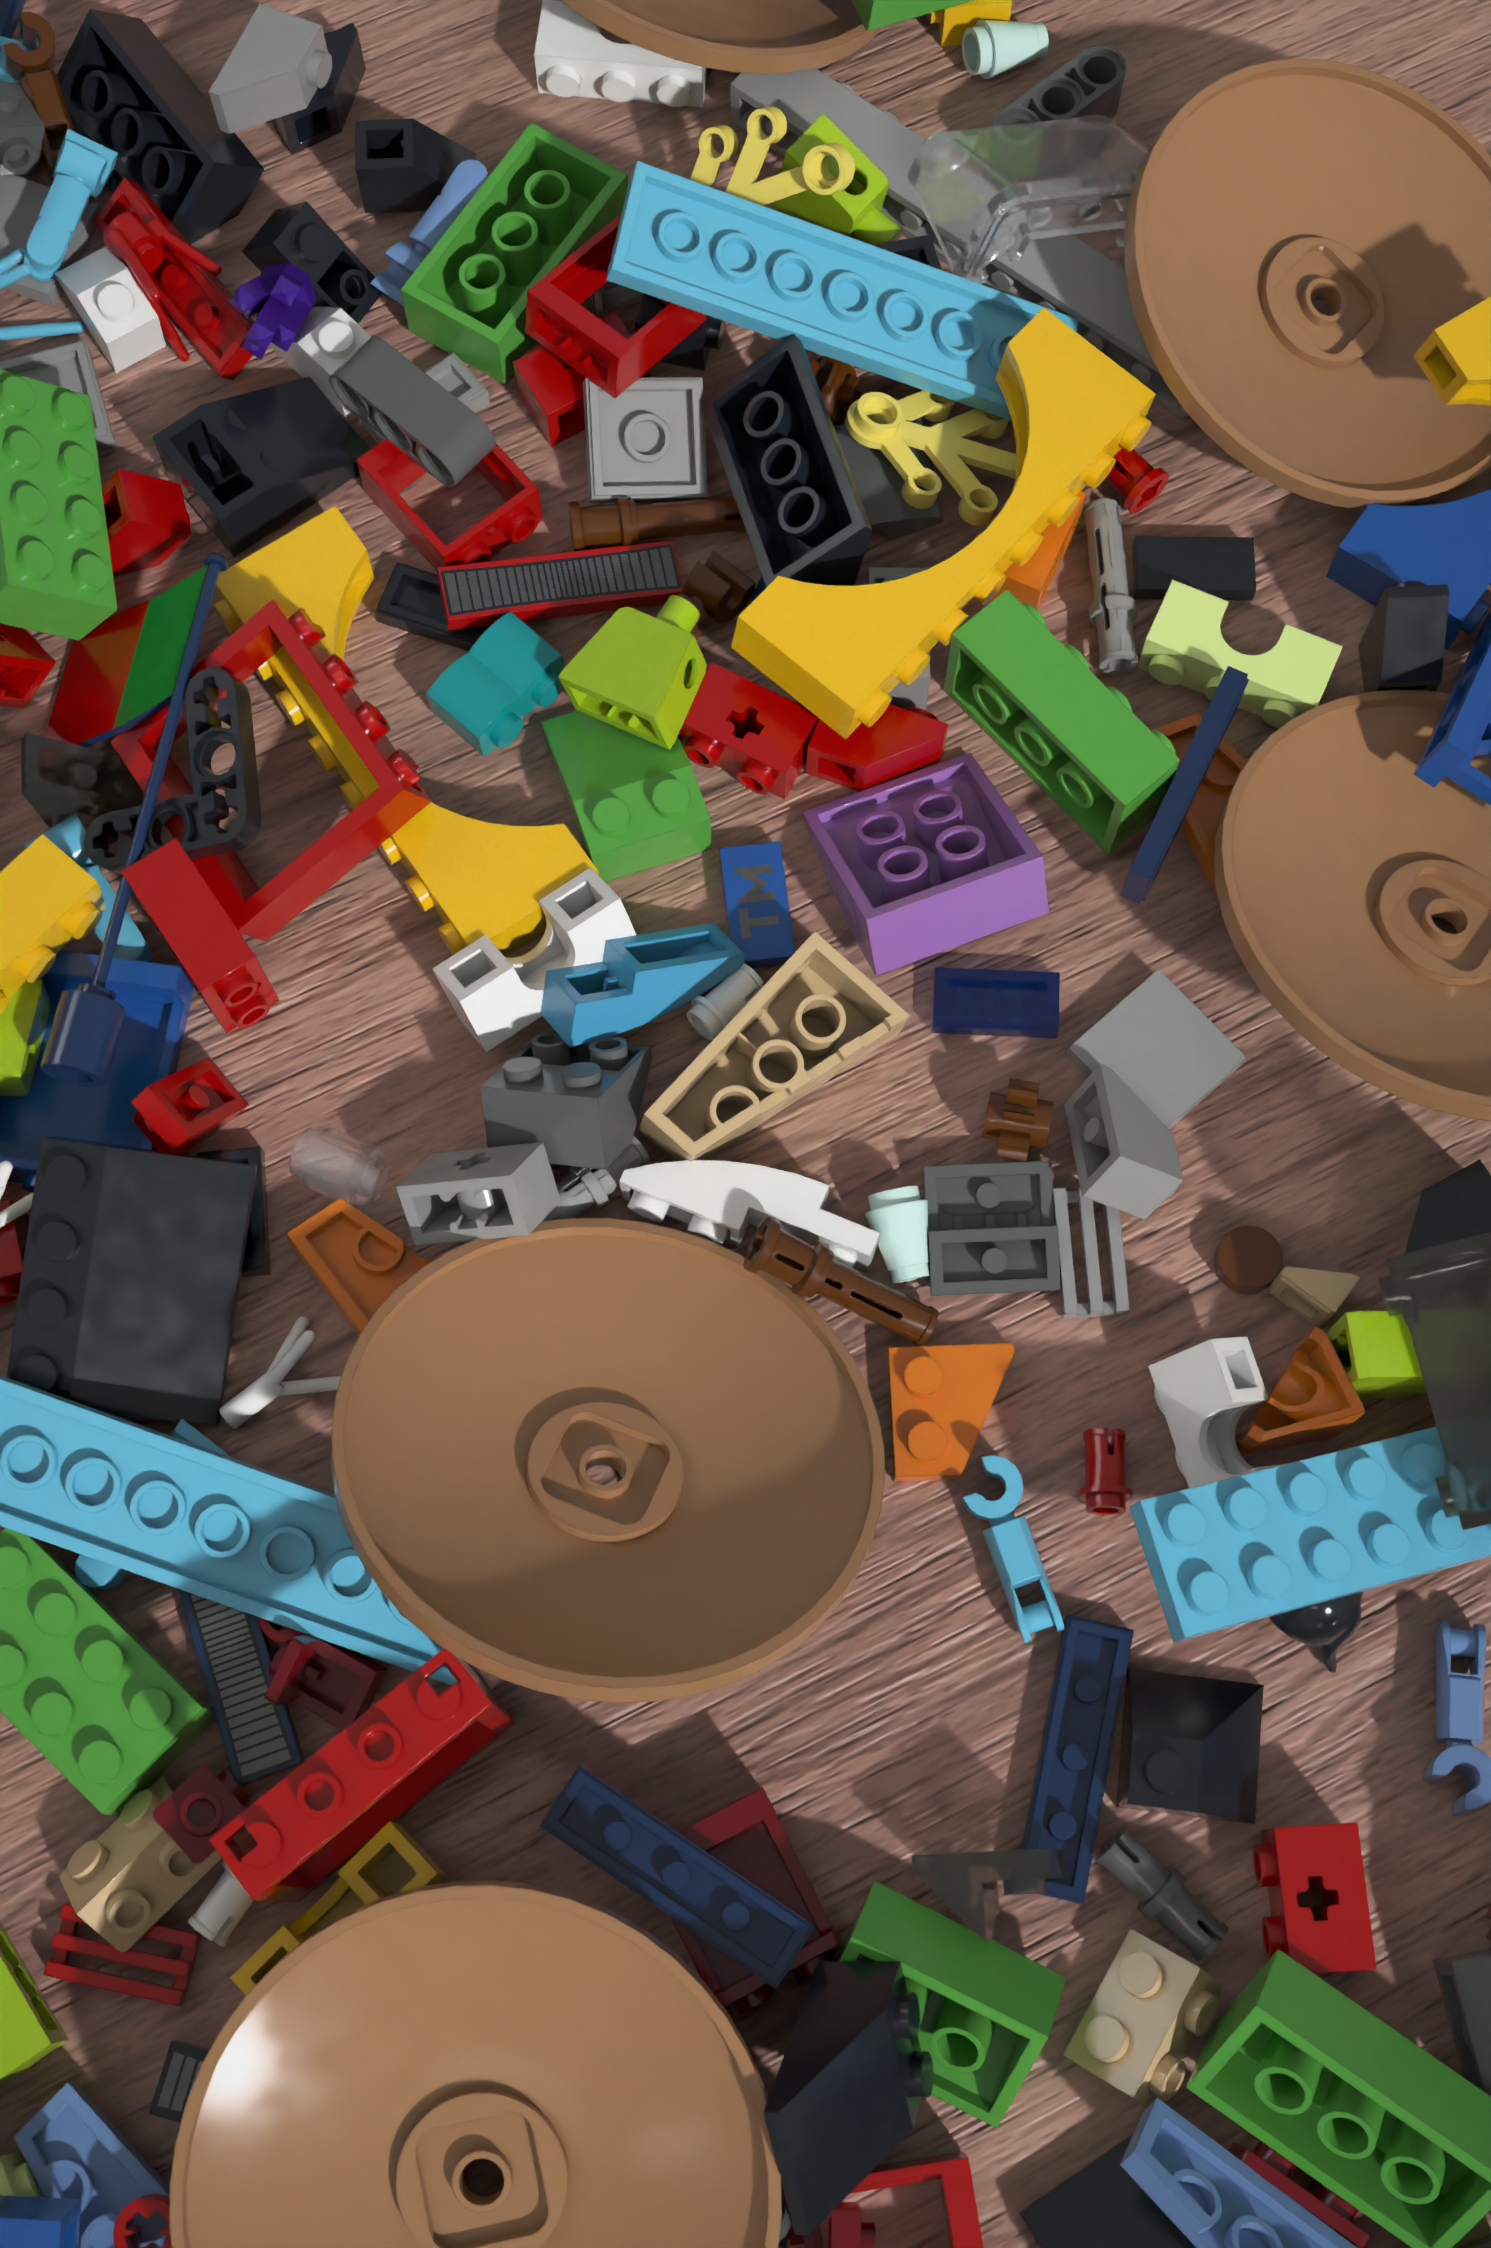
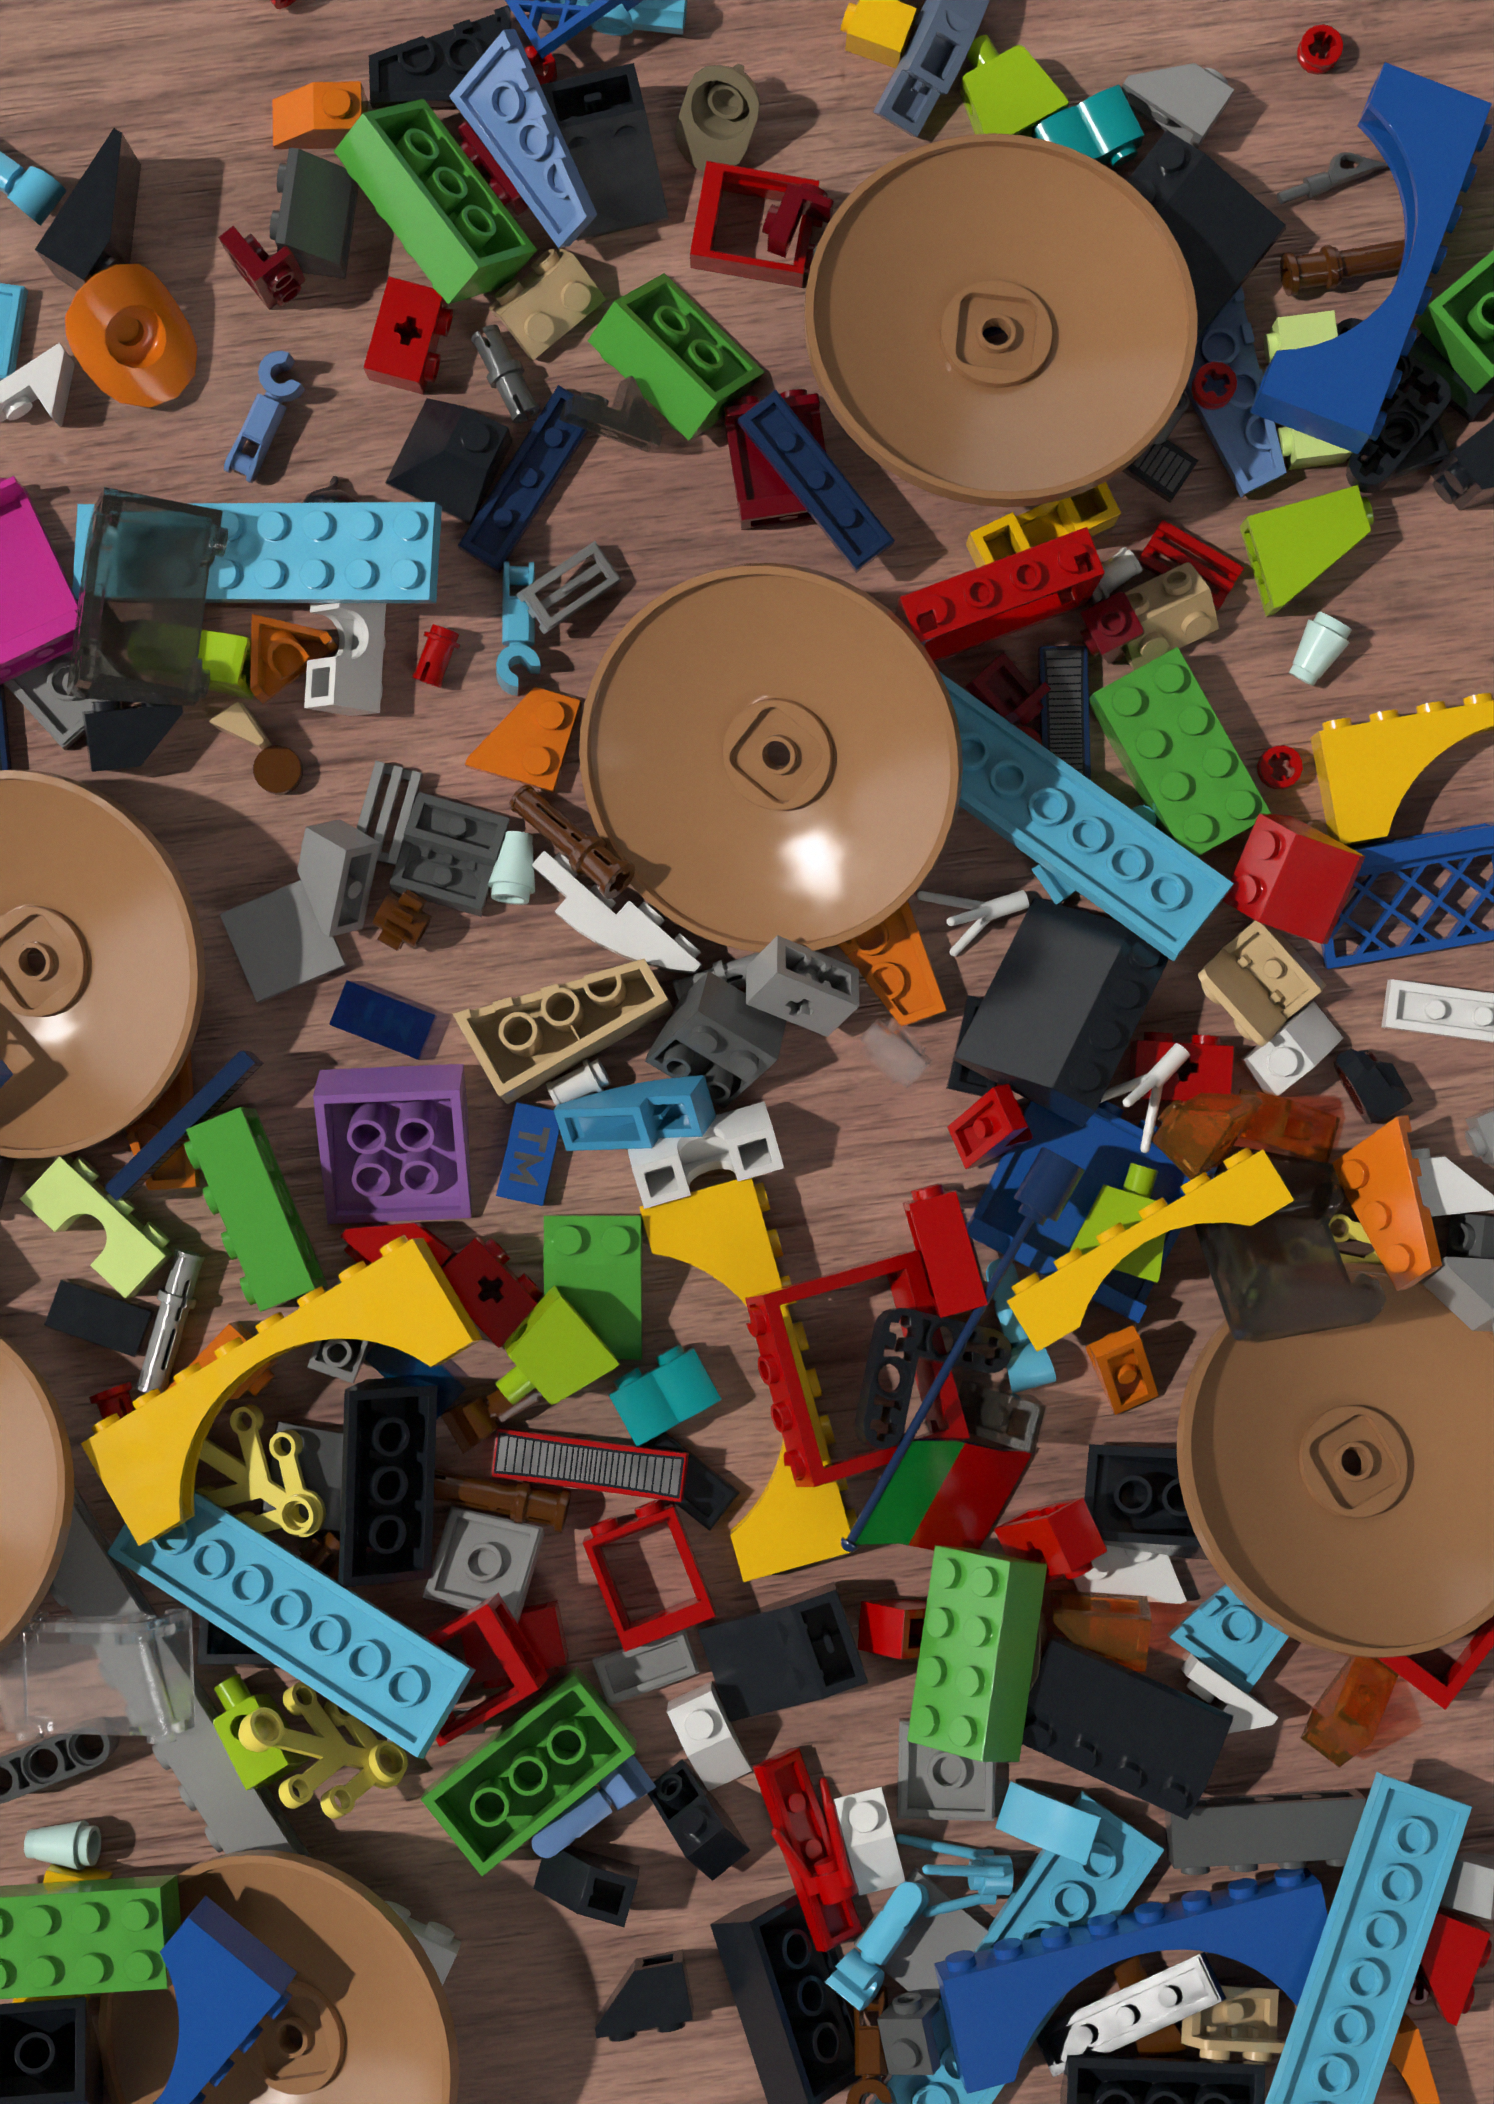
camera: 165 degrees left, 15 degrees up
(270, 70) = (676, 1998): light grey slope -> none
(282, 301) = (739, 1772): dark purple rock -> none
(412, 411) = (659, 1634): dark grey beam -> none
(845, 2085) = (750, 316): black slope -> none
(995, 1573) = (538, 608): none -> light grey tile

